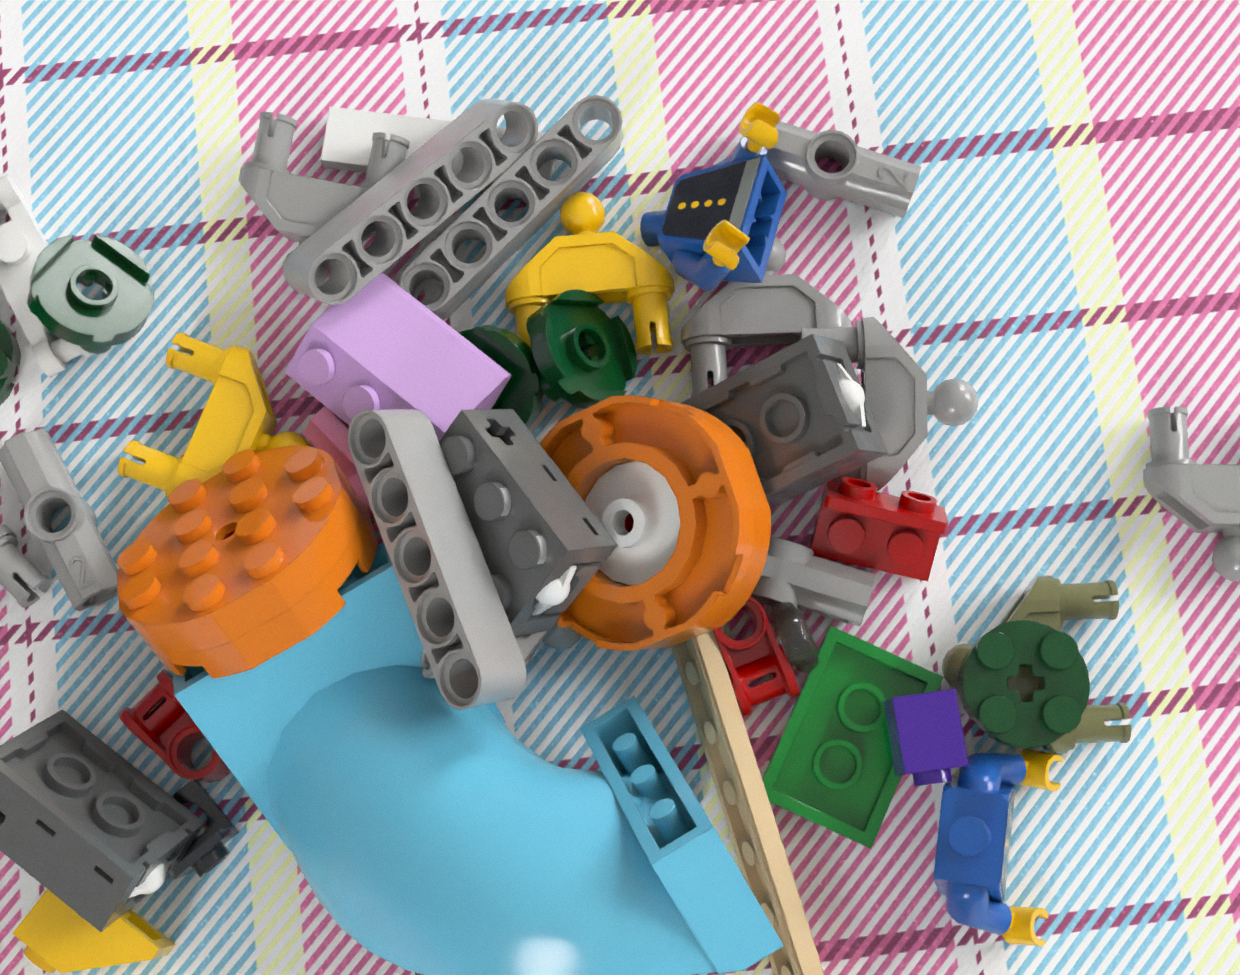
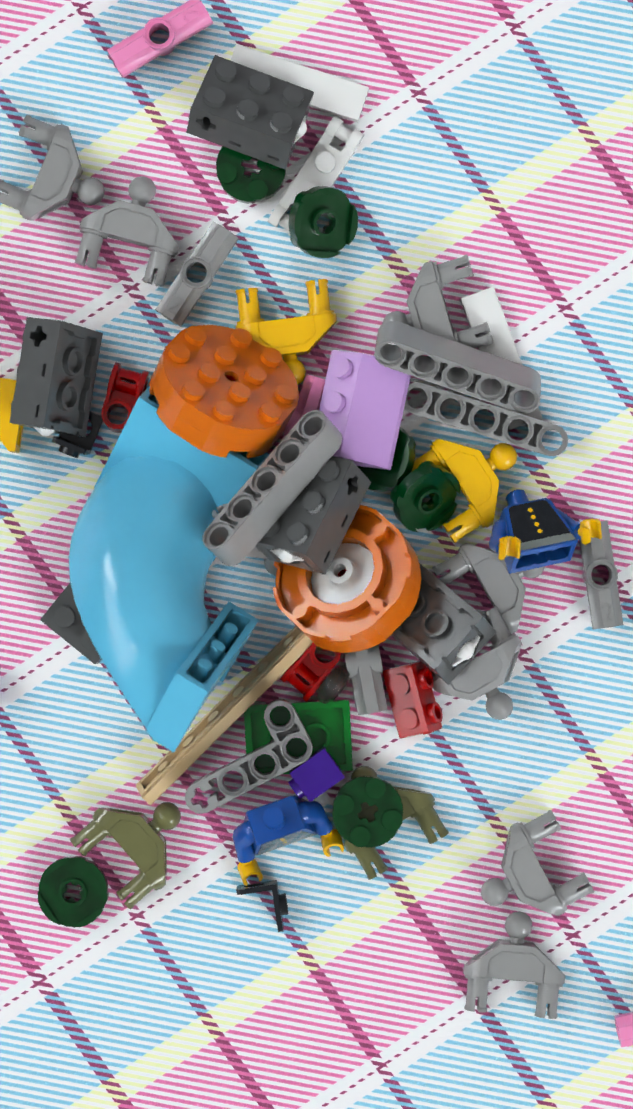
camera: 60 degrees right, 10 degrees up
(852, 838) = (246, 764): none -> light grey beam
(1063, 912) = (280, 900): none -> black bracket

